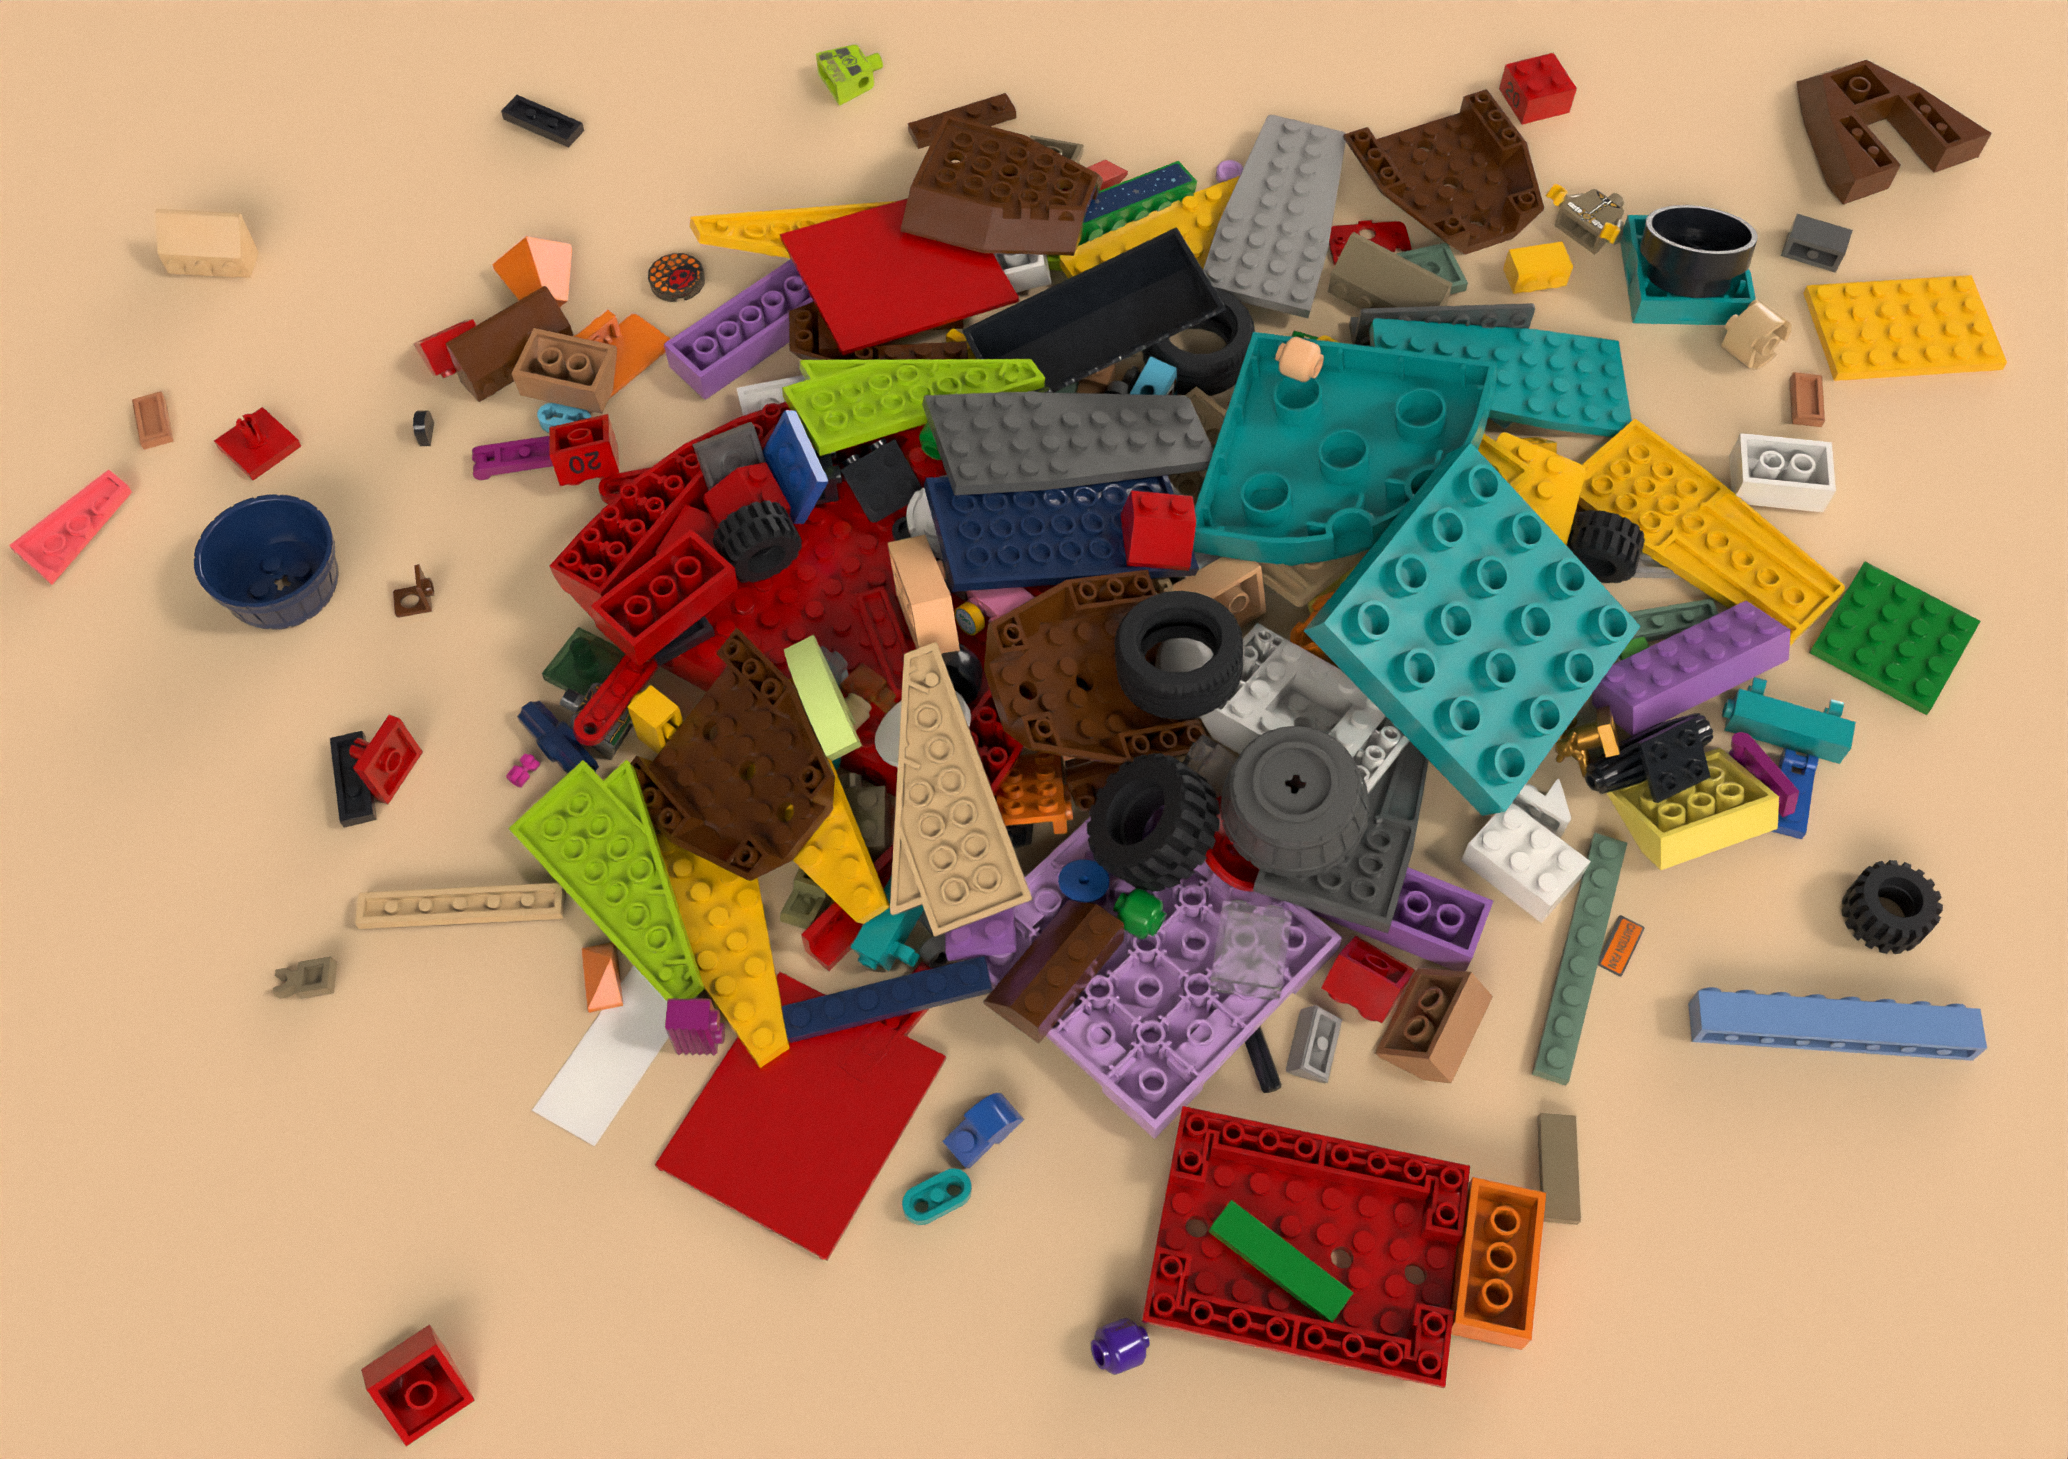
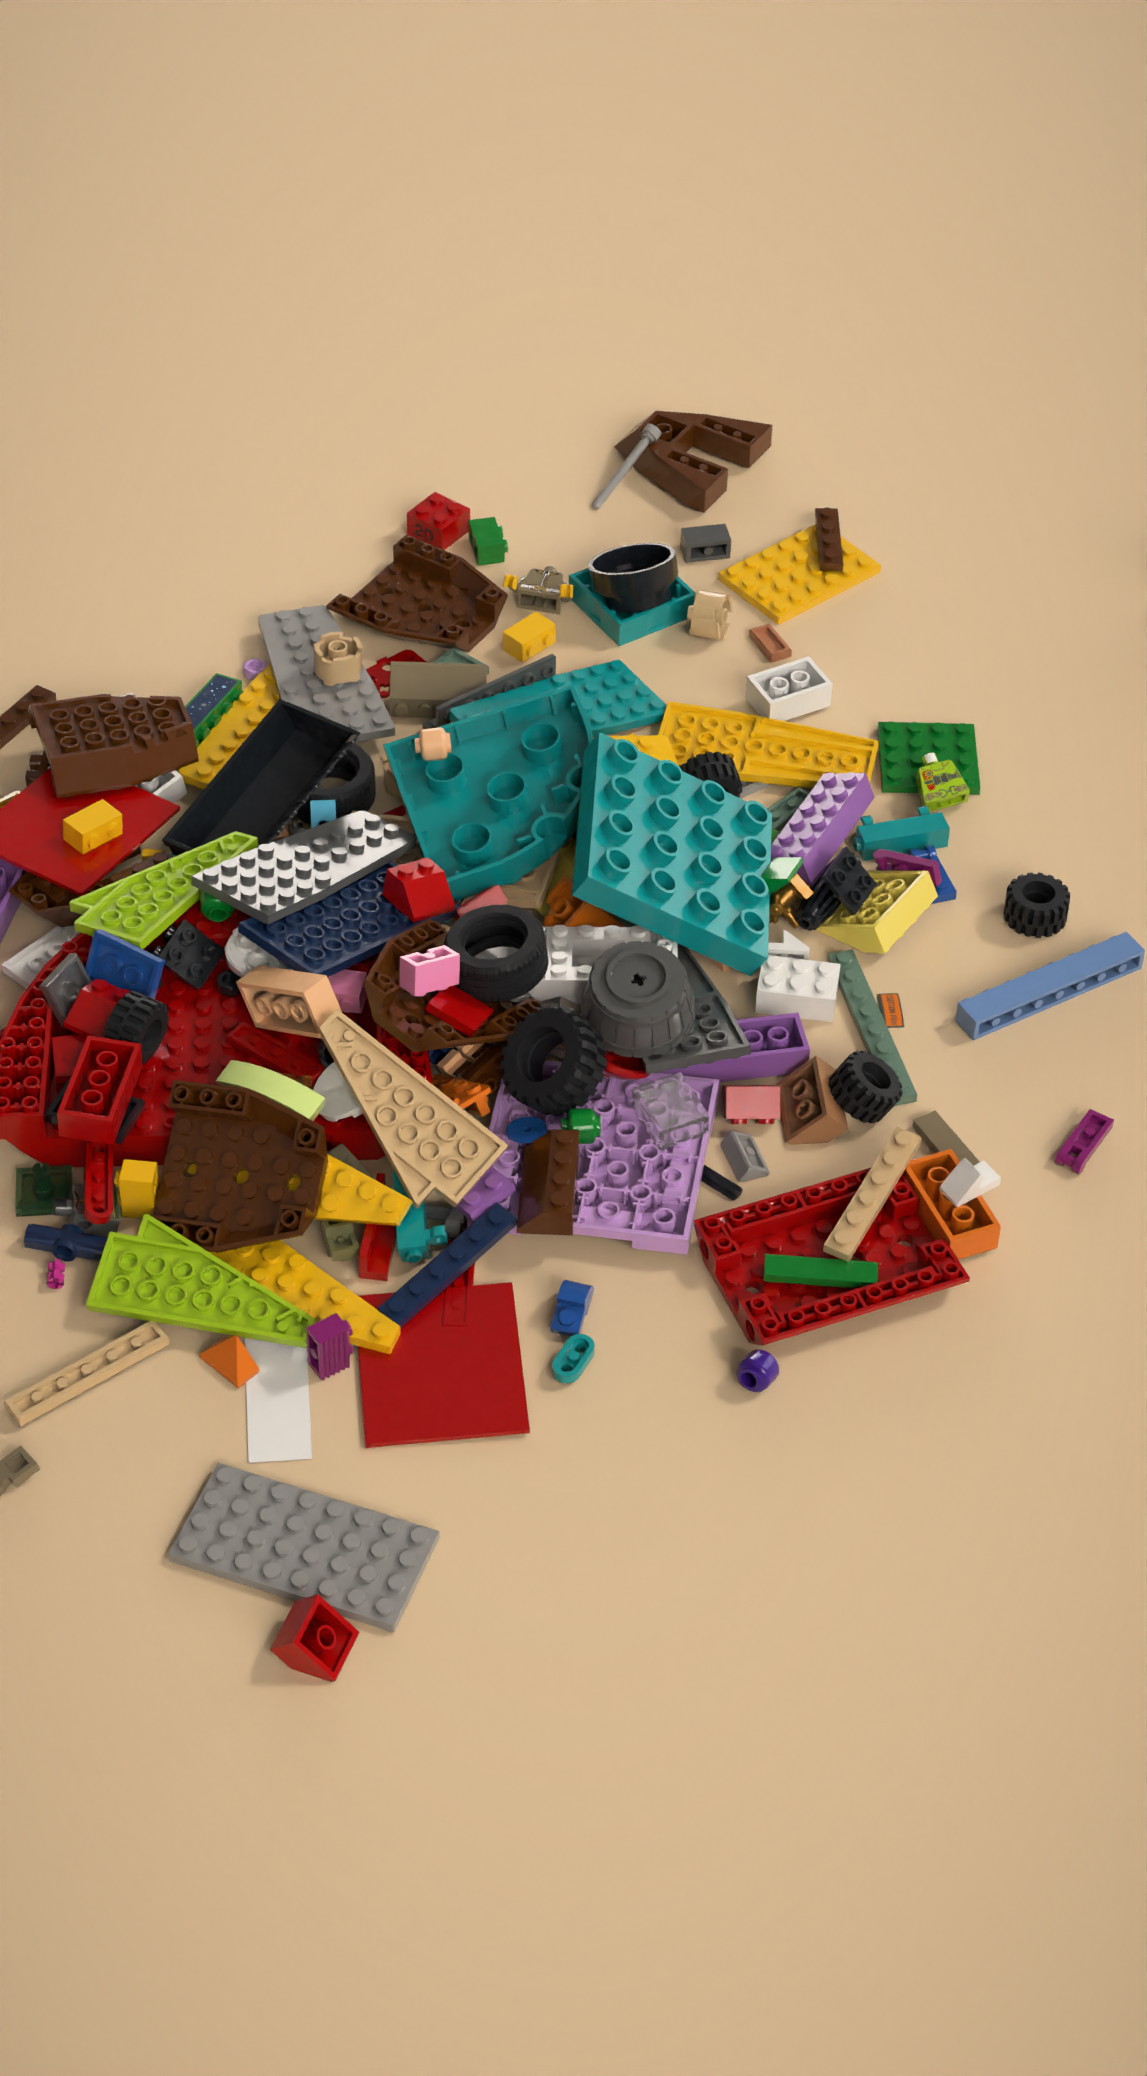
camera: 35 degrees left, 15 degrees down
(504, 1258) = (304, 1546): none -> light grey plate
(905, 281) = (92, 826): none -> yellow brick
(1080, 643) = (429, 971): none -> bright pink brick
(1094, 702) = (459, 1010): none -> red tile
(1224, 577) = (491, 896): none -> slope
(1300, 203) = (337, 658): none -> tan brick
(1406, 1200) = (872, 1194): none -> tan plate
(1527, 1043) = (865, 1087): none -> black tyre
(1532, 1258) = (969, 1182): none -> white slope
(1573, 133) = (487, 540): none -> green brick
(1595, 709) = (781, 872): none -> slope
(1732, 1266) = (1084, 1140): none -> magenta plate
(1836, 86) = (649, 435): none -> light grey piece
(1880, 683) = (940, 784): none -> torso
(1963, 303) = (828, 539): none -> reddish brown plate

